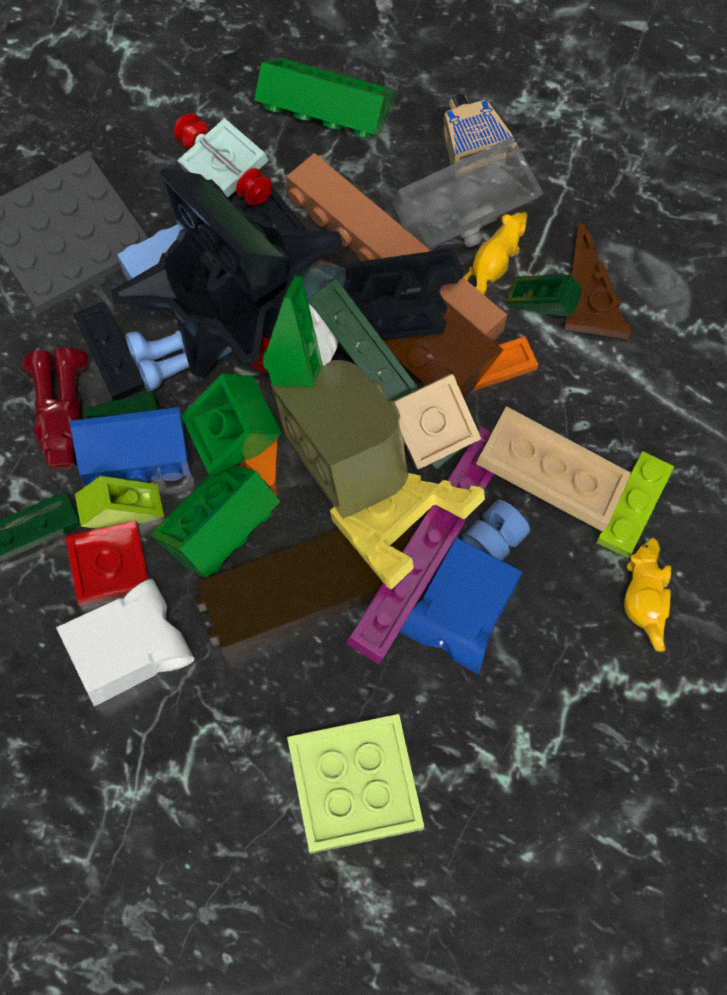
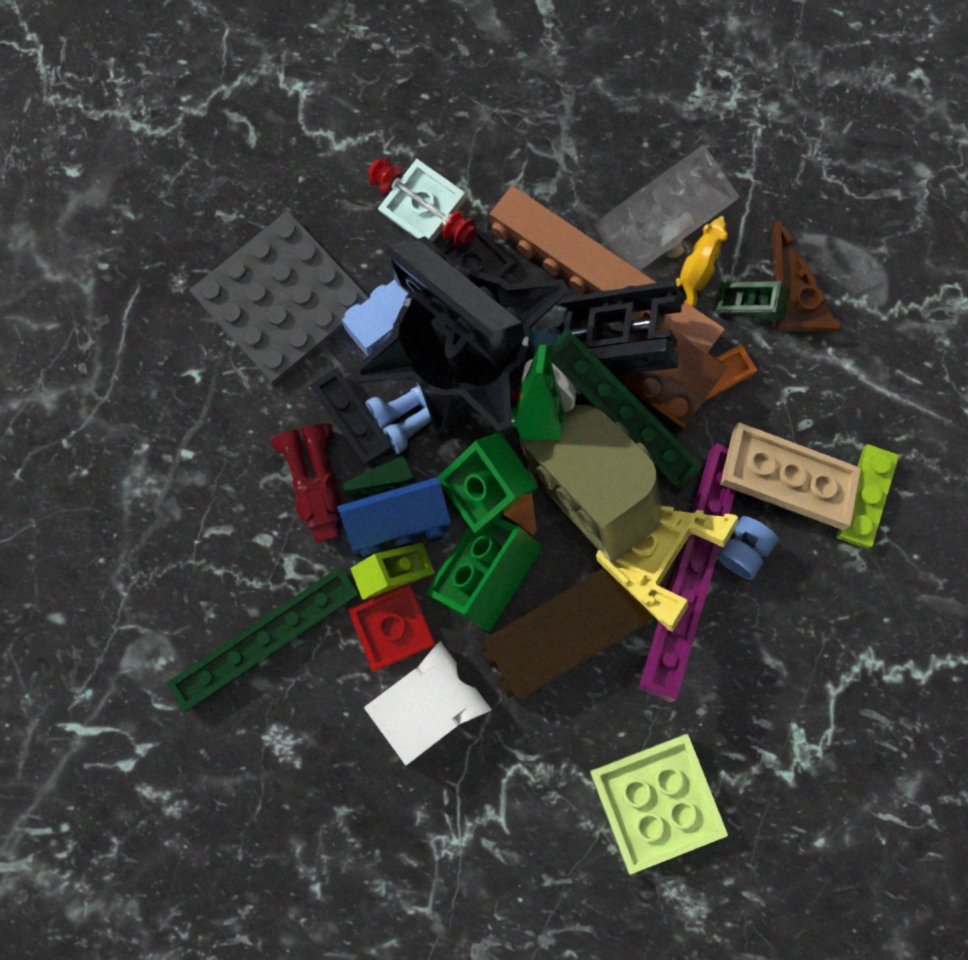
camera: 10 degrees left, 10 degrees up
(324, 96) = (507, 118): green slope -> none
(435, 421) = (679, 449): tan plate -> none
(463, 604) = (734, 623): blue piece -> none
(471, 128) = (658, 138): torso -> none
(646, 599) = (891, 587): yellow animal -> none

